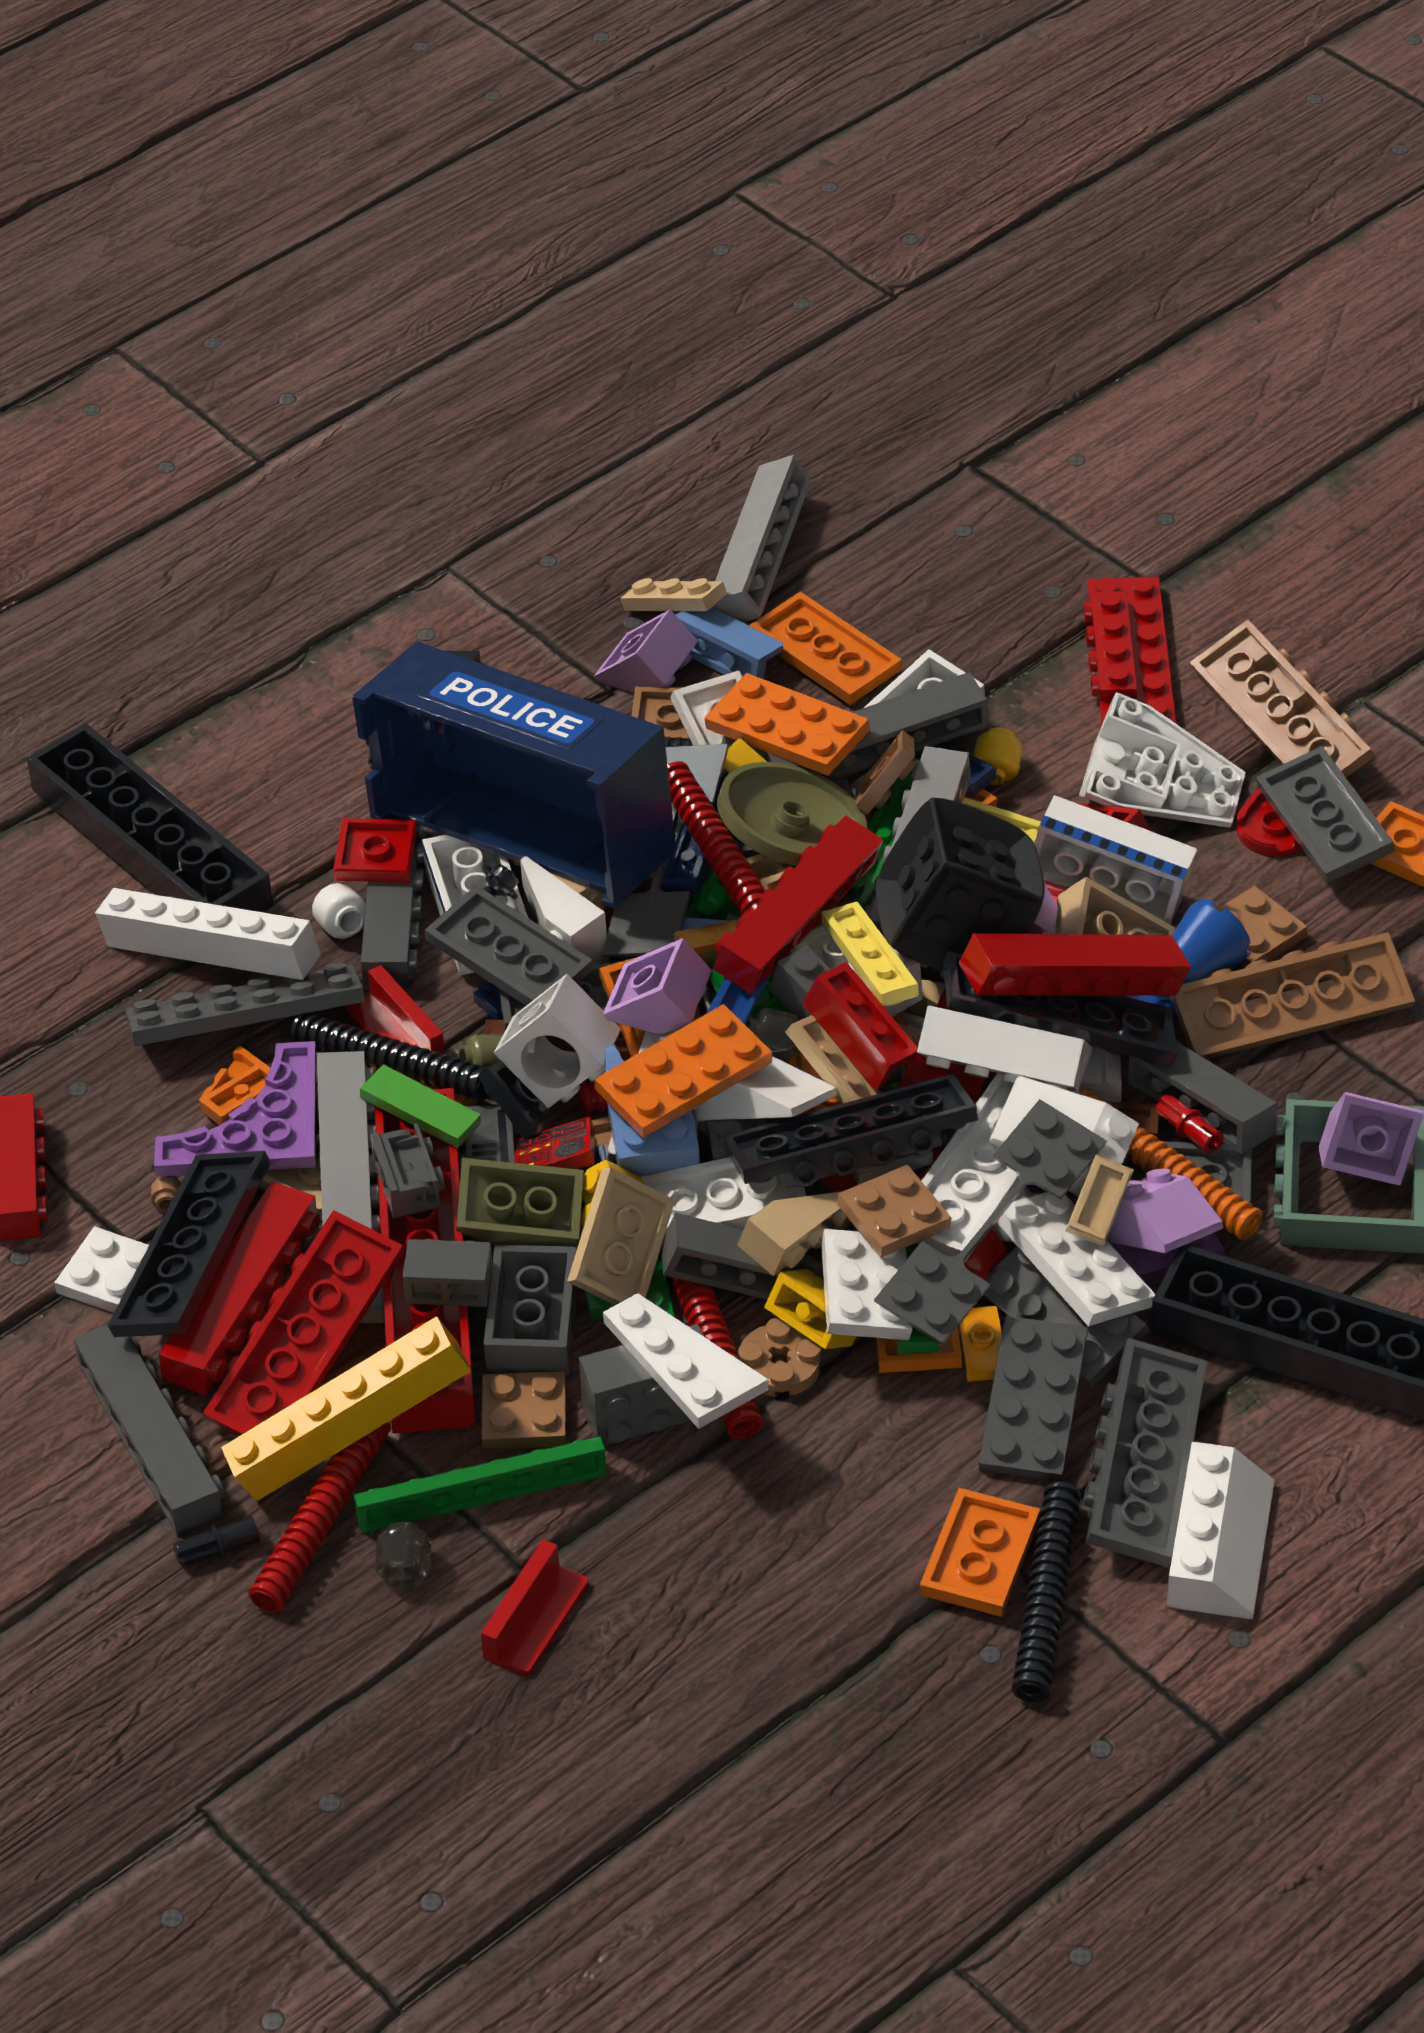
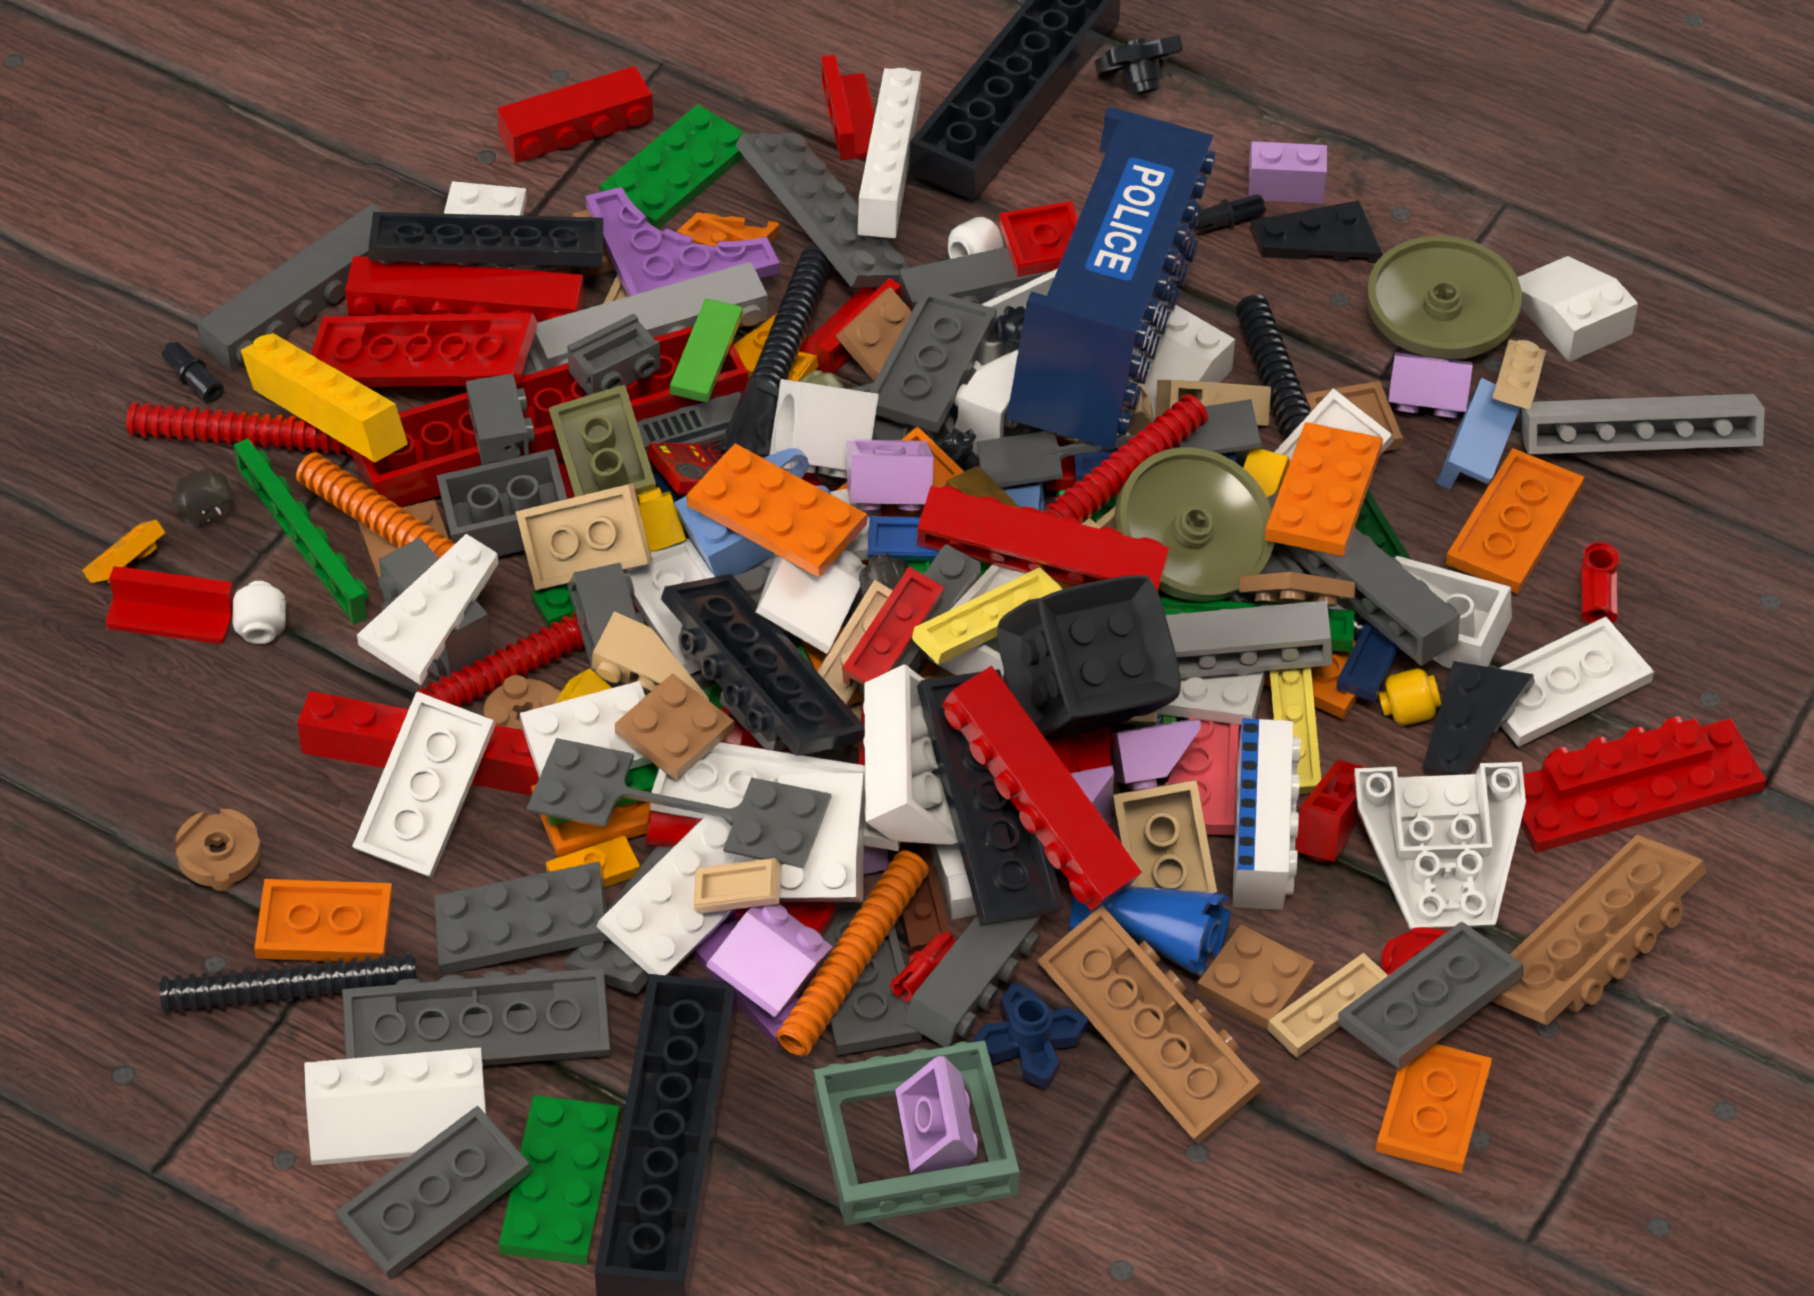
camera: 70 degrees right, 5 degrees up
(110, 969) = (848, 109): none -> red panel
(114, 1107) = (678, 165): none -> green plate
(169, 740) = (1140, 62): none -> black plant
(338, 679) = (1288, 172): none -> lavender slope
(439, 994) = (875, 331): none -> medium nougat plate
(447, 1634) = (136, 543): none -> light orange plate
(504, 1405) = (367, 505): none -> orange piece
(561, 620) = (1444, 297): none -> olive dish
(578, 1533) = (259, 612): none -> white head
(595, 549) = (1577, 306): none -> white slope
(617, 951) = (960, 446): none -> black plant
(795, 1435) = (368, 731): none -> red brick
(855, 1641) = (221, 868): none -> medium nougat plate
(866, 1427) = (424, 785): none -> white plate
(909, 613) = (1599, 582): none -> red piece
(1012, 665) = (1574, 679): none -> white plate
(1038, 723) = (1470, 715): none -> black wing
(1278, 1075) = (1032, 1034): none -> dark blue plant
(1301, 886) = (1317, 1011): none -> tan plate
(1327, 1435) = (559, 1203): none -> green plate
(1329, 1518) = (433, 1192): none -> dark grey plate

